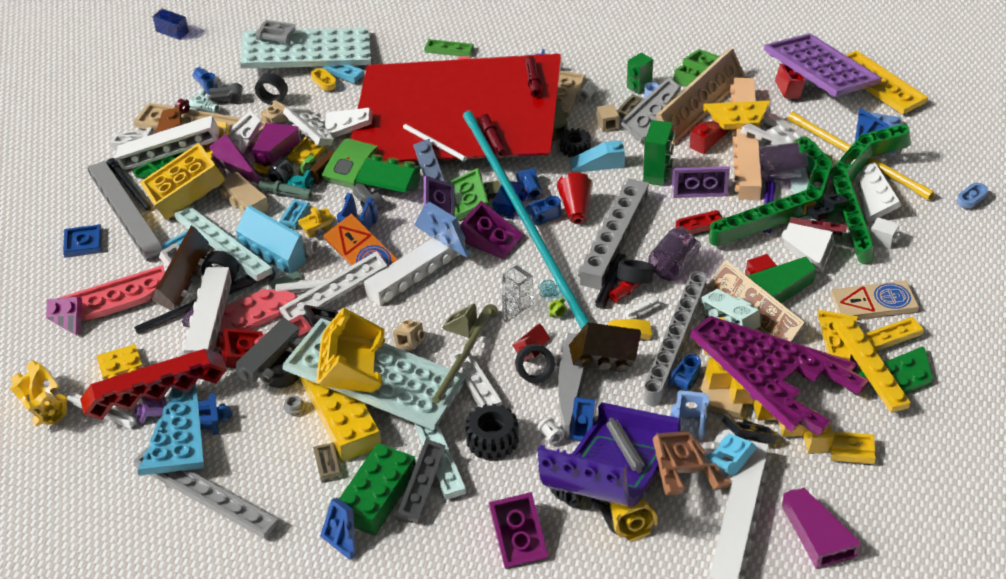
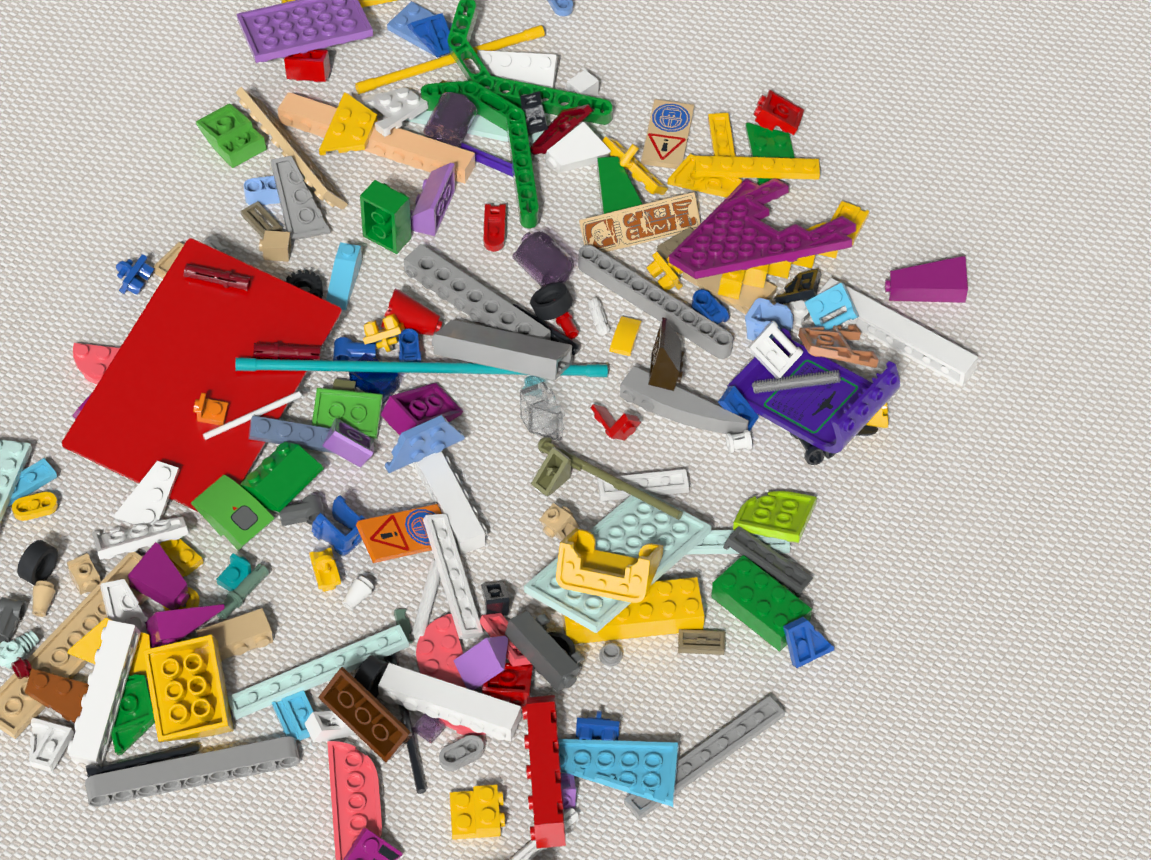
camera: 75 degrees left, 10 degrees up
(82, 240) = (226, 829): blue tile -> none
(171, 340) = (460, 753): none -> light grey plate
(249, 103) = (42, 596): none -> tan cone
(252, 319) = (482, 661): none -> medium lavender slope
(271, 240) = (343, 619): medium azure slope -> none
(281, 171) = (208, 588): black head -> none
(297, 214) = (283, 599): medium azure tile -> none
(307, 165) = (210, 559): bright green tile -> none
(318, 169) = (216, 537): reddish brown plate -> none
(425, 118) = (210, 410): none -> orange bracket
(448, 48) = (38, 360): bright green tile -> none
(473, 473) = (777, 515): none -> lime plate
(492, 419) = (724, 472): black tyre -> none
(517, 530) = (851, 501): magenta slope -> none
(546, 374) = (661, 424): black tyre -> none
(548, 183) = (391, 328): none -> yellow hips
(557, 308) = (570, 385): lime plate -> none
(562, 253) = (502, 349): none -> light grey brick
(639, 72) = (220, 187): green brick -> none
(644, 413) = (770, 354): none -> white plate
(706, 136) = (354, 168): red slope -> none
(732, 309) = (644, 242): light aqua piece -> none
(759, 264) = (590, 201): red brick -> none
(819, 286) = (638, 170): none -> yellow plate
(947, 361) = (778, 111): none -> red plate

